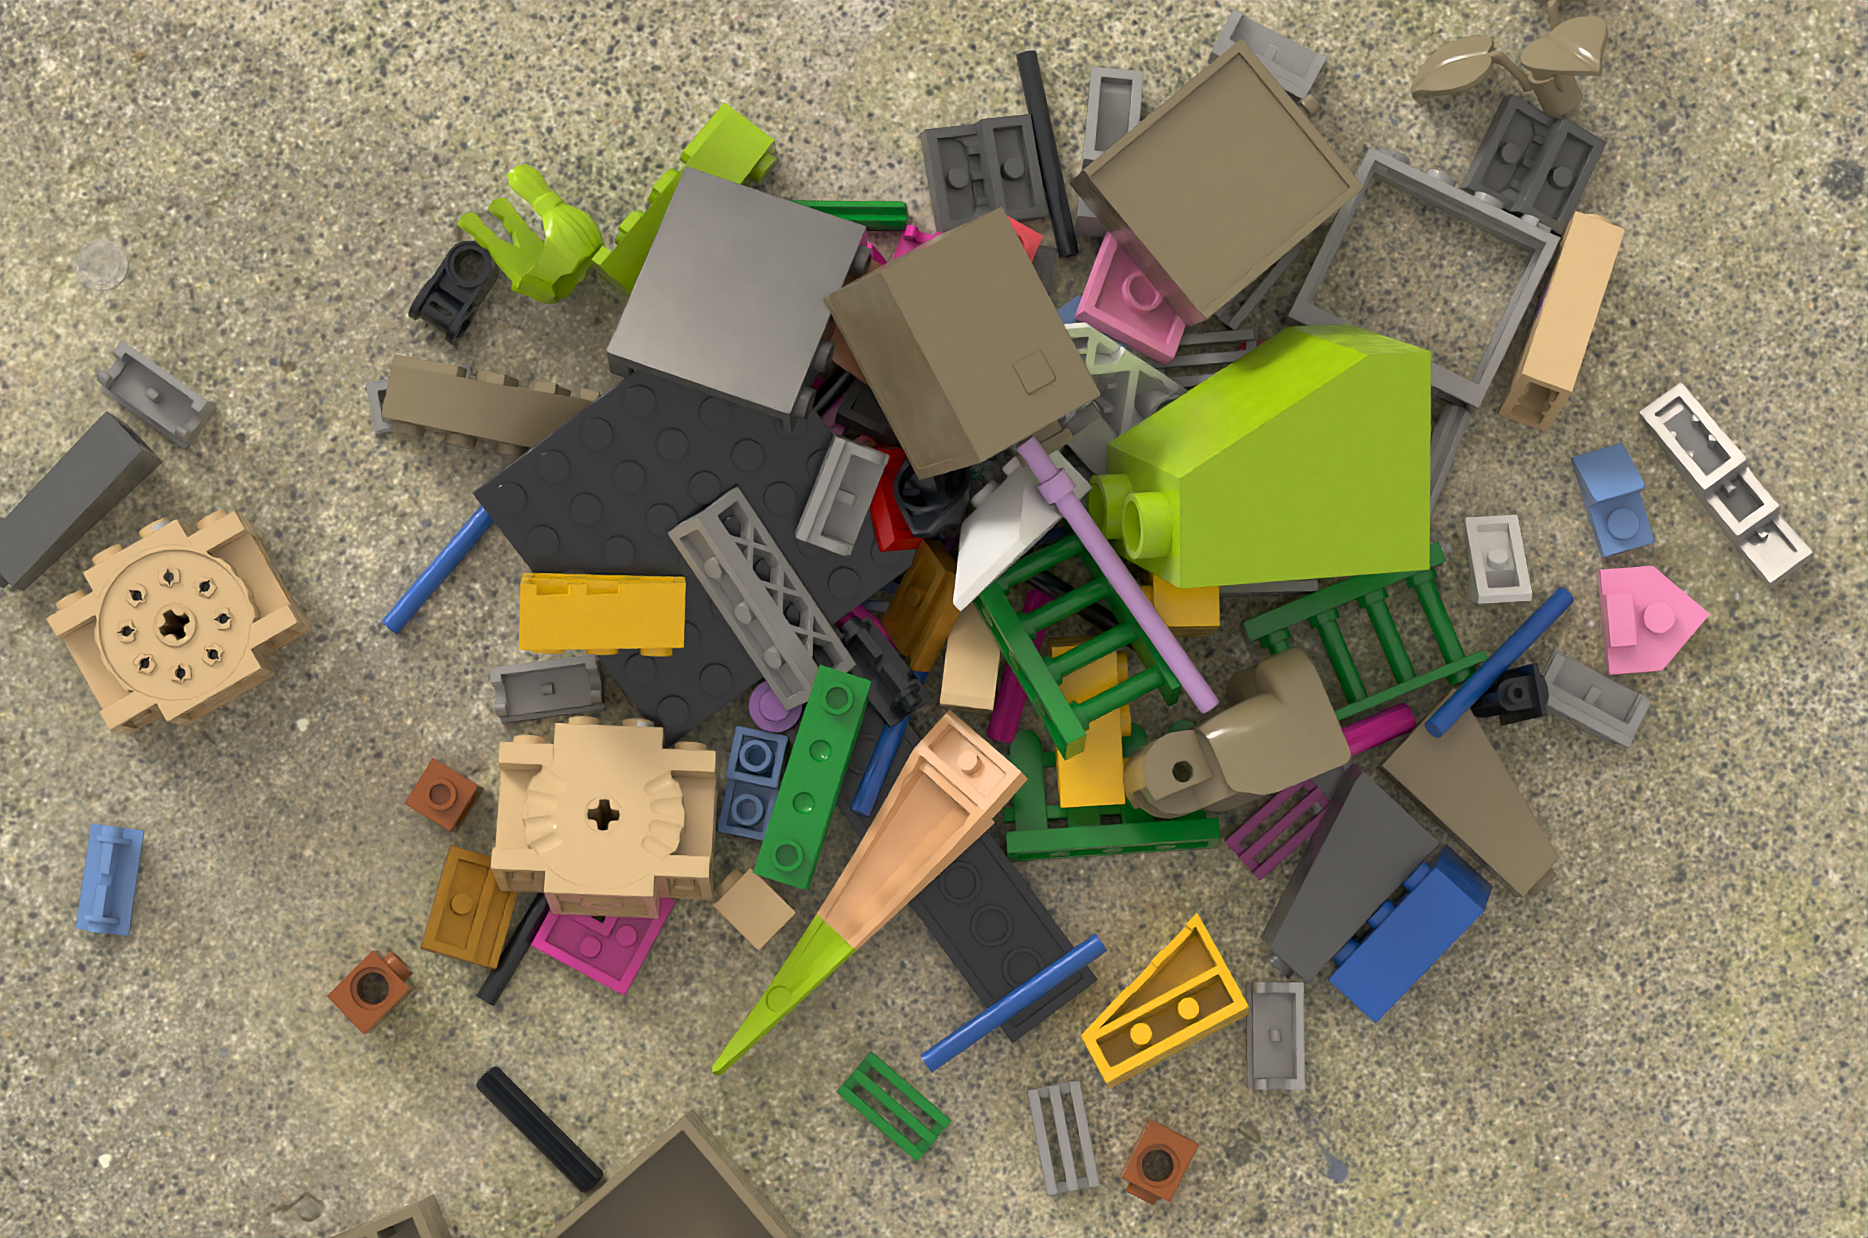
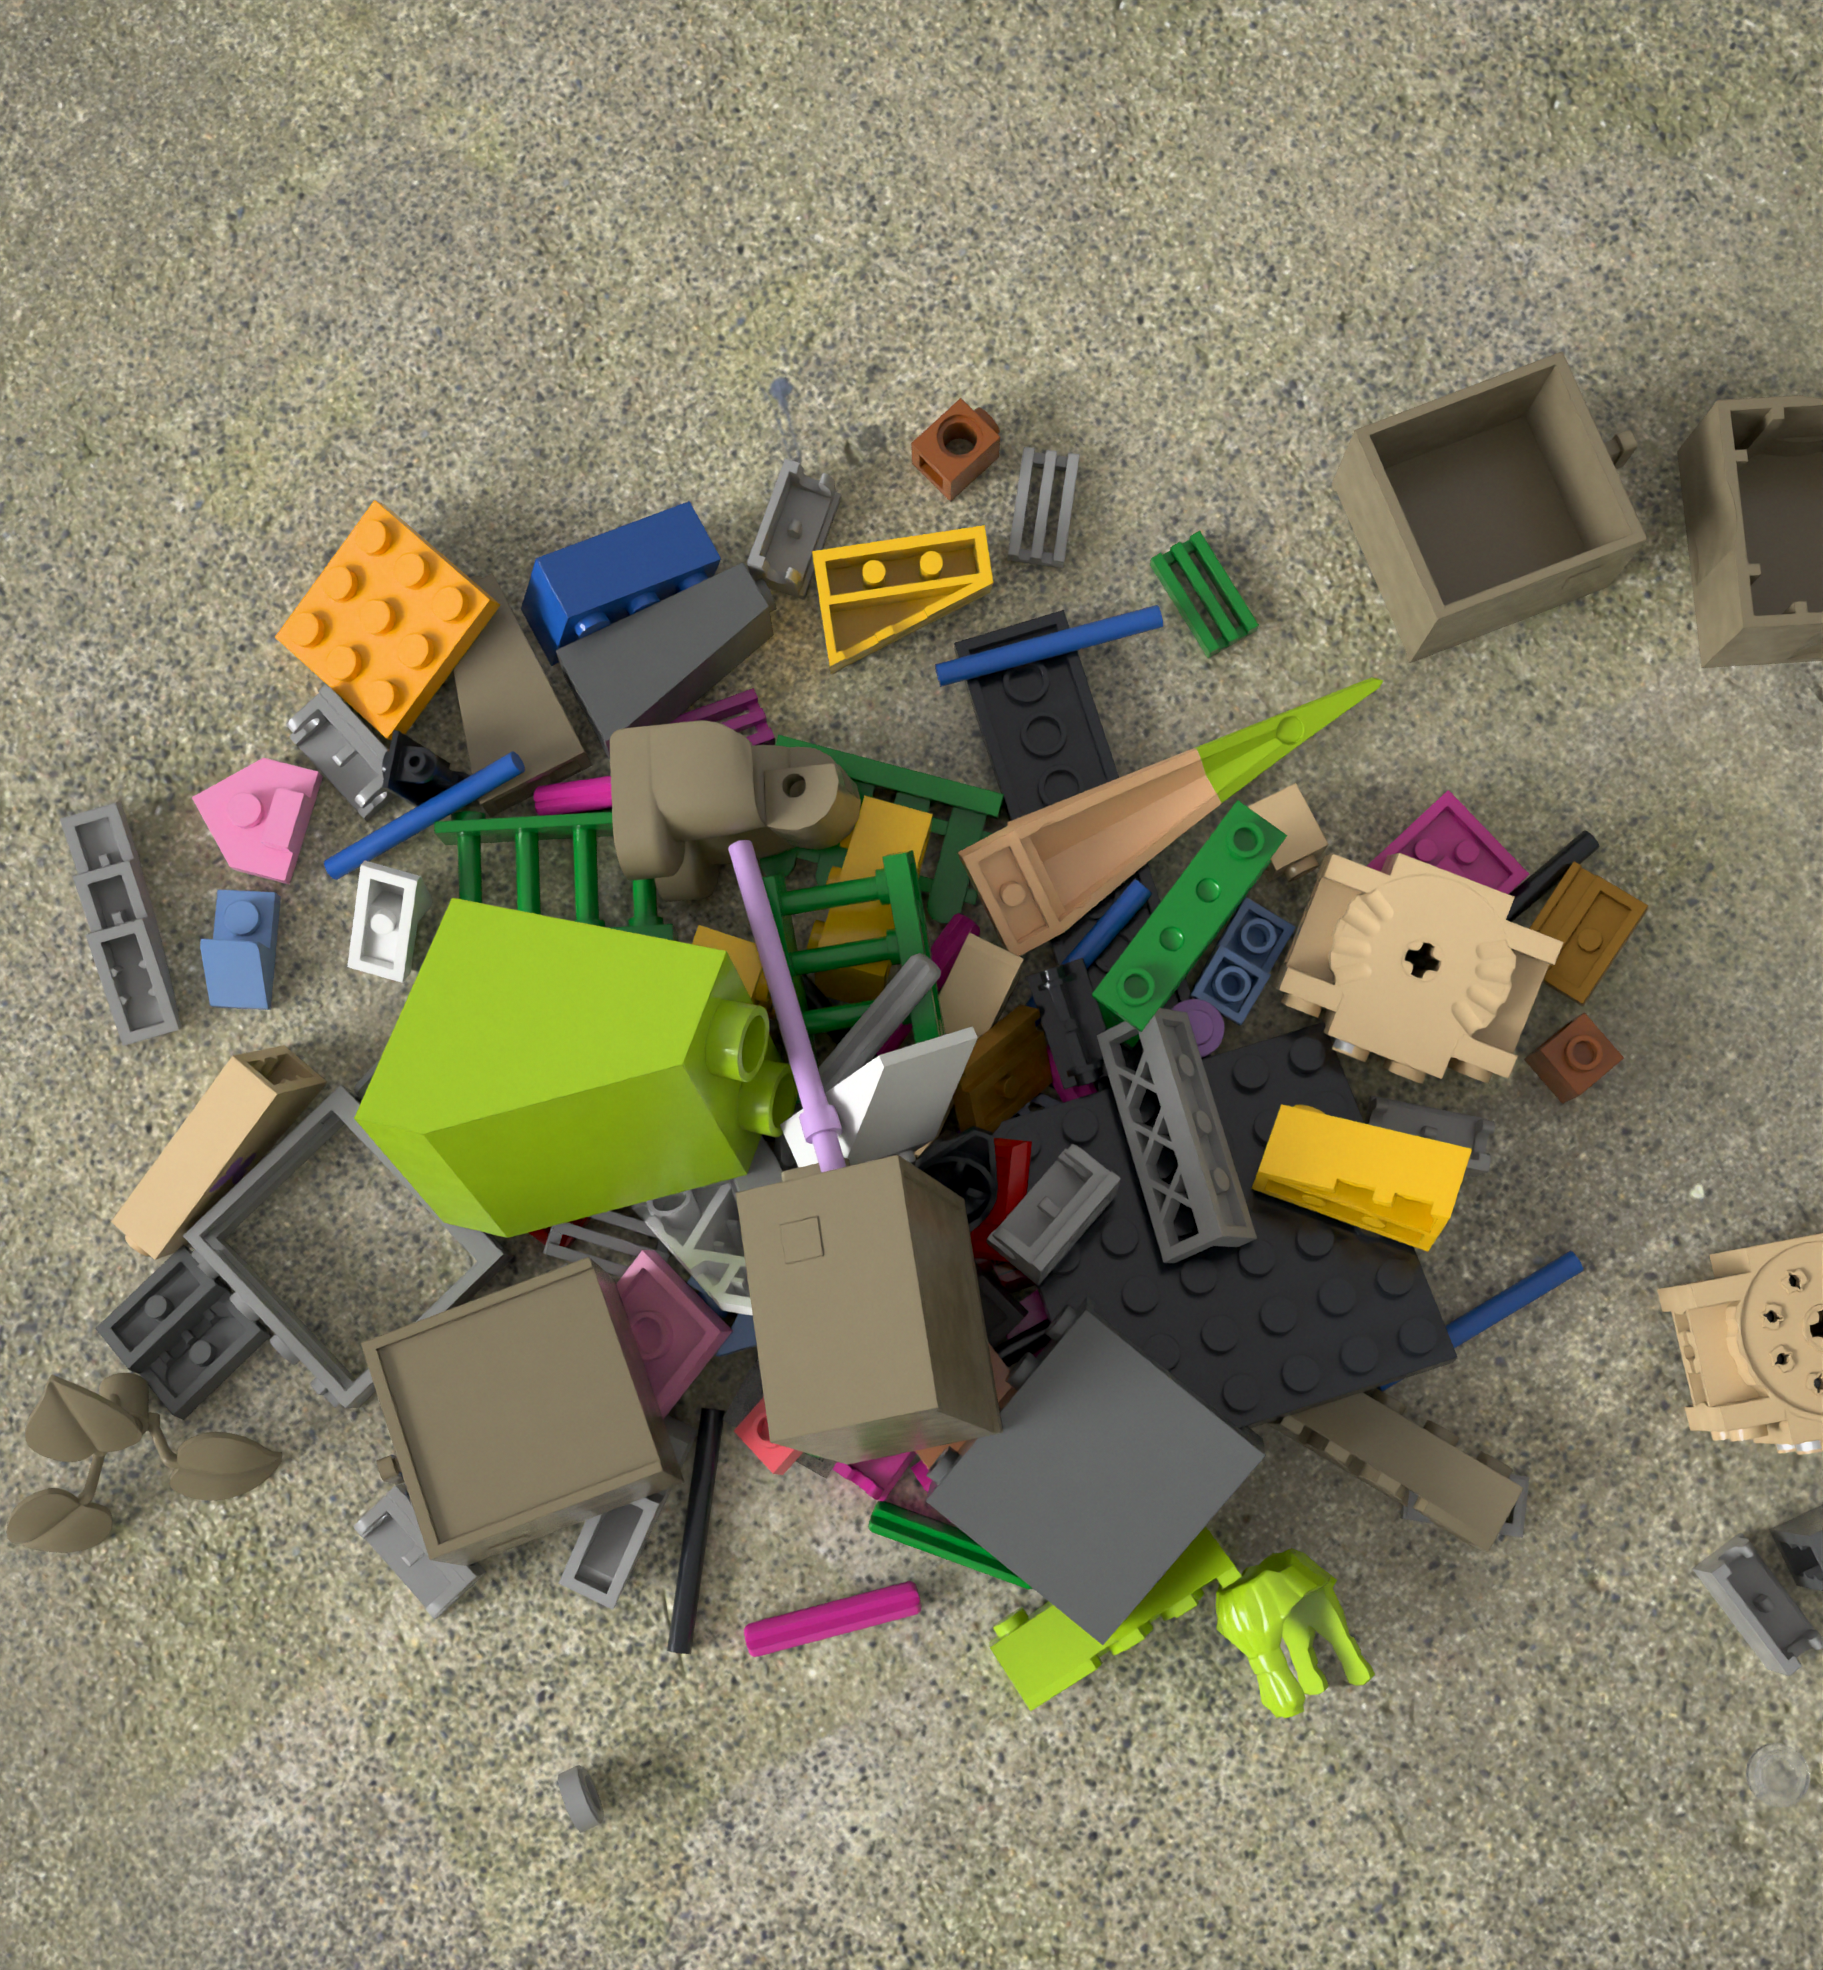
camera: 155 degrees left, 5 degrees down
(349, 993) = (1730, 873): dark orange brick -> none
(453, 293) = (1402, 1596): black piece -> none
(539, 1129) = (1575, 691): black axle -> none
(909, 122) = (832, 1619): none -> dark pink axle
(983, 168) = (773, 1531): dark grey slope -> none
(1042, 594) = (880, 1020): none -> light grey axle
(1599, 823) = (387, 621): none -> light orange plate

